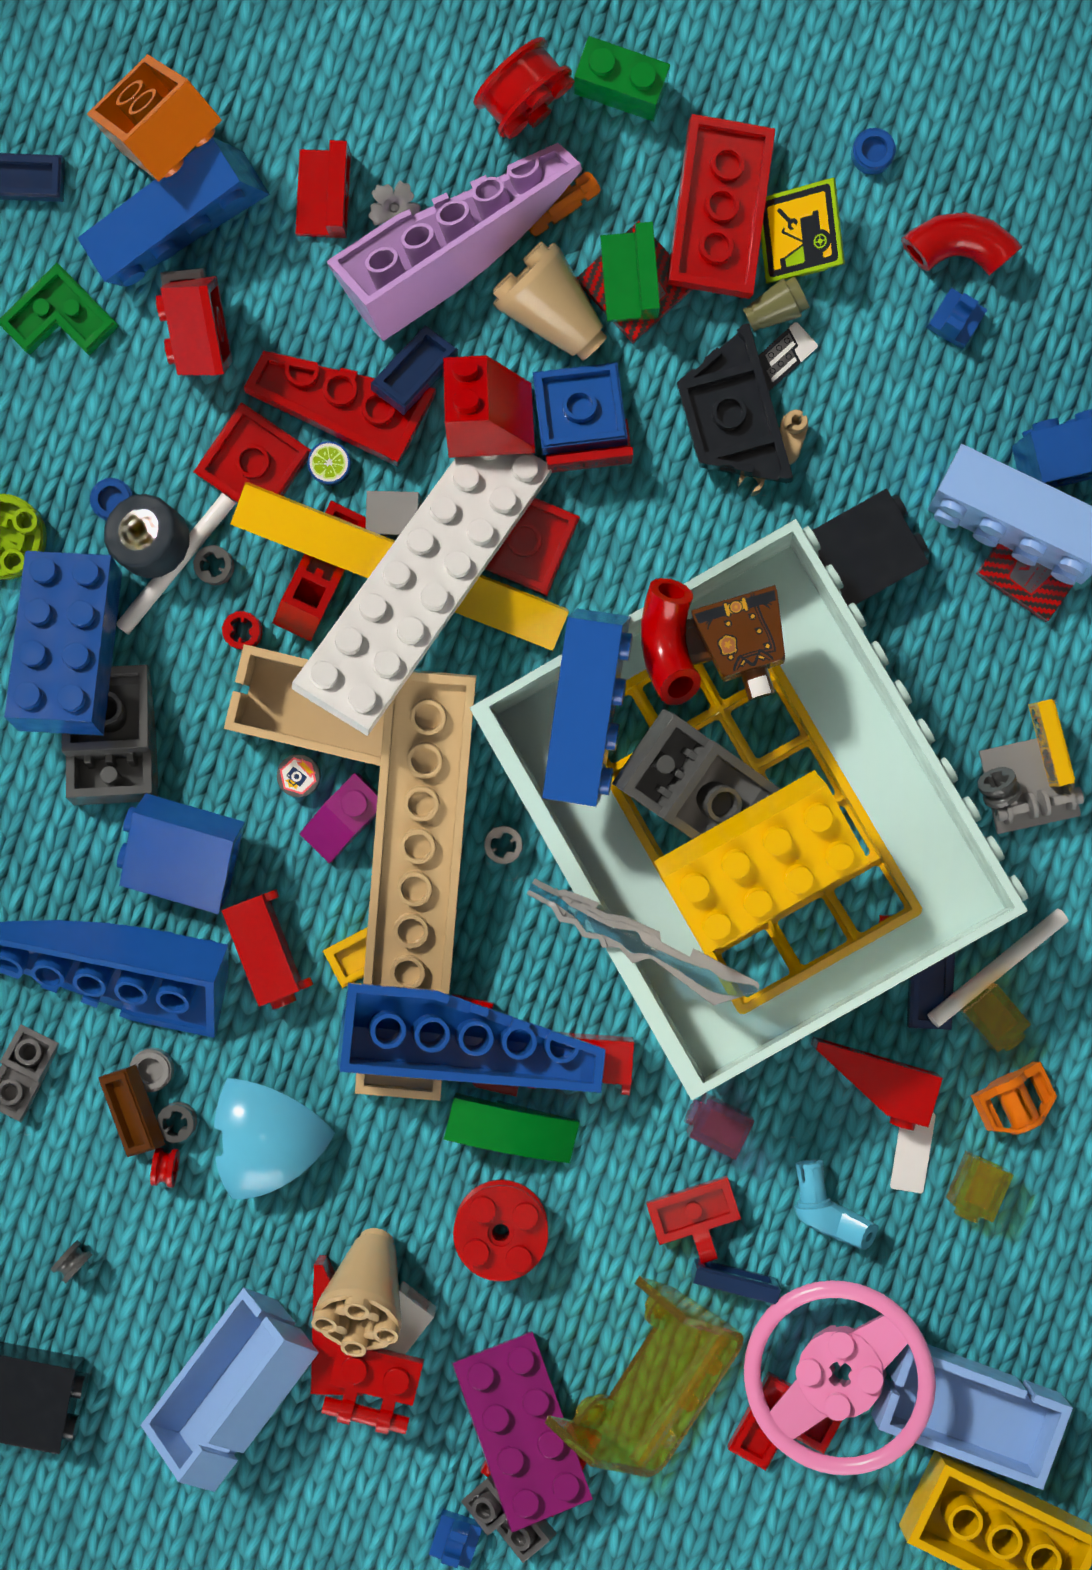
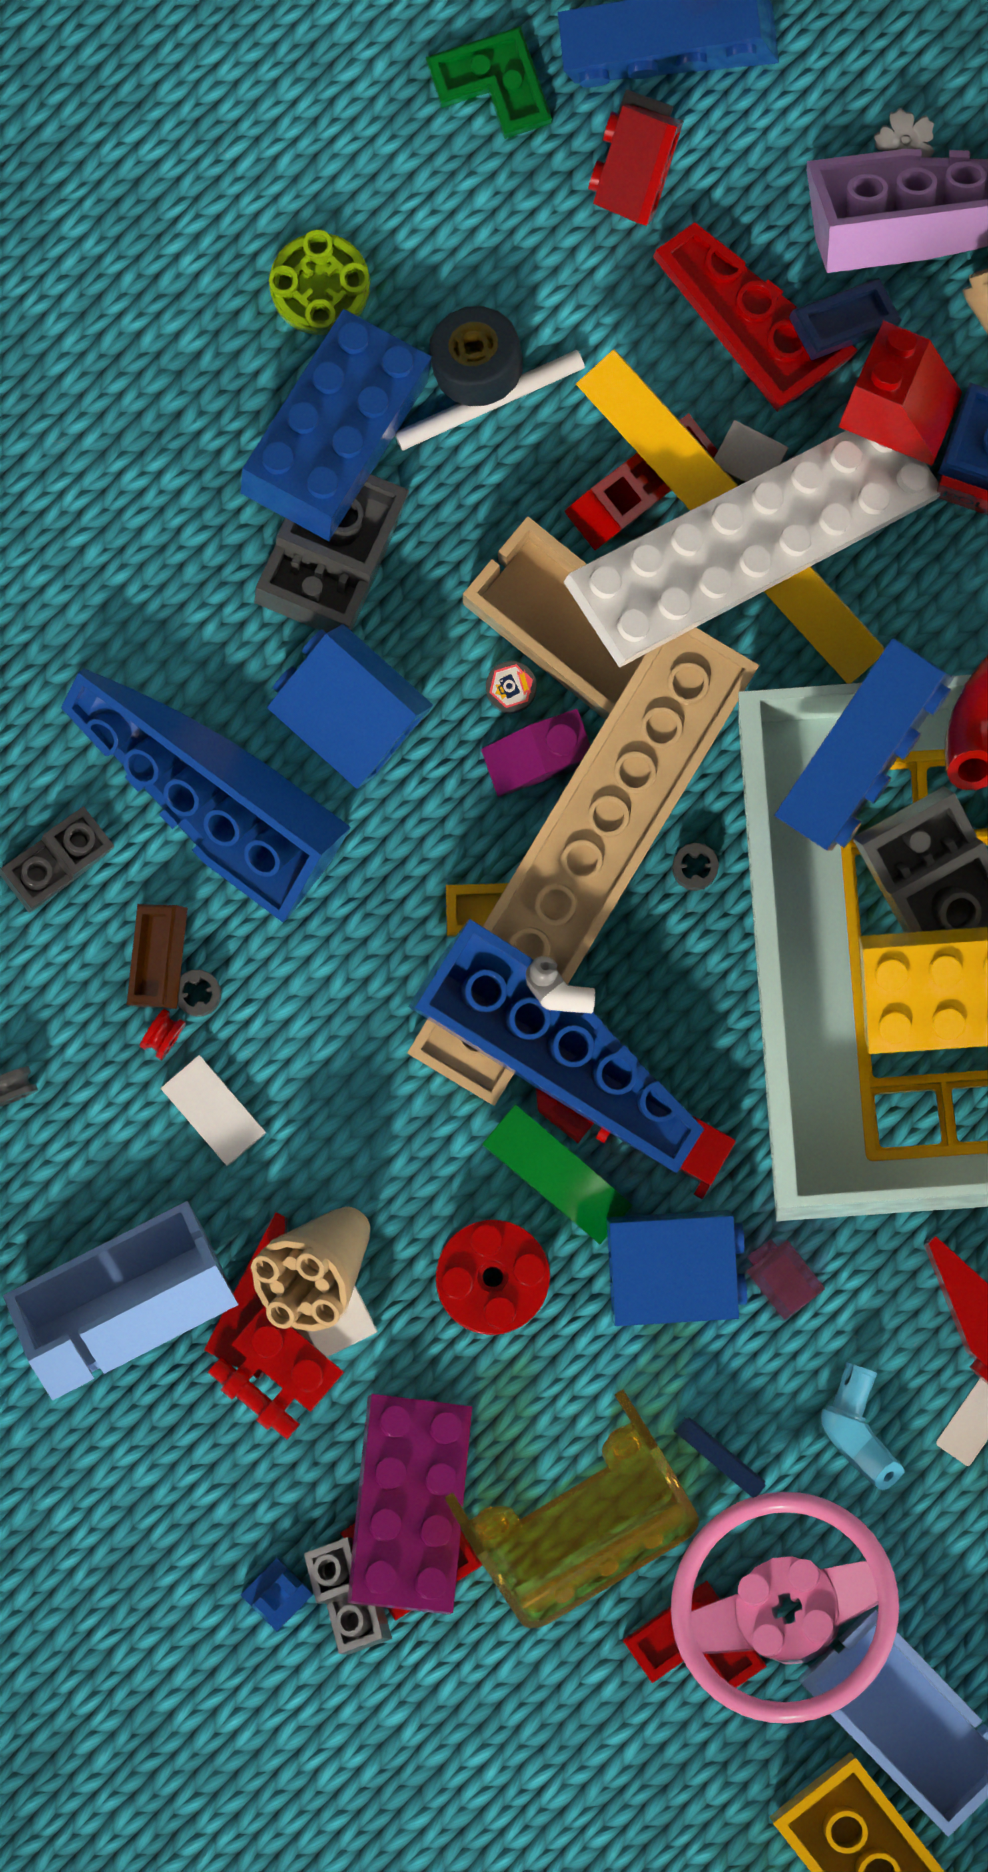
camera: 30 degrees right, 5 degrees down
(108, 495) = (453, 294): blue tile -> none
(154, 1068) = (203, 924): light grey tile -> none
(213, 1202) = (213, 1110): none -> white tile
(220, 554) = (543, 414): dark grey bush -> none
(229, 629) = (513, 496): red bush -> none
(252, 452) = (630, 319): red tile -> none
(264, 951) = (385, 854): red brick -> none
(265, 1138) = (289, 1053): medium azure brick -> none
(323, 191) = (838, 88): red panel -> none
(329, 463) = (705, 373): tile -> none
(440, 1007) = (553, 991): none -> arm
(535, 547) = (882, 567): red tile -> none
(633, 1157) = (675, 1267): none -> blue brick
(639, 942) = (800, 1016): light grey sword -> none
(694, 1213) = (711, 1362): red plate -> none

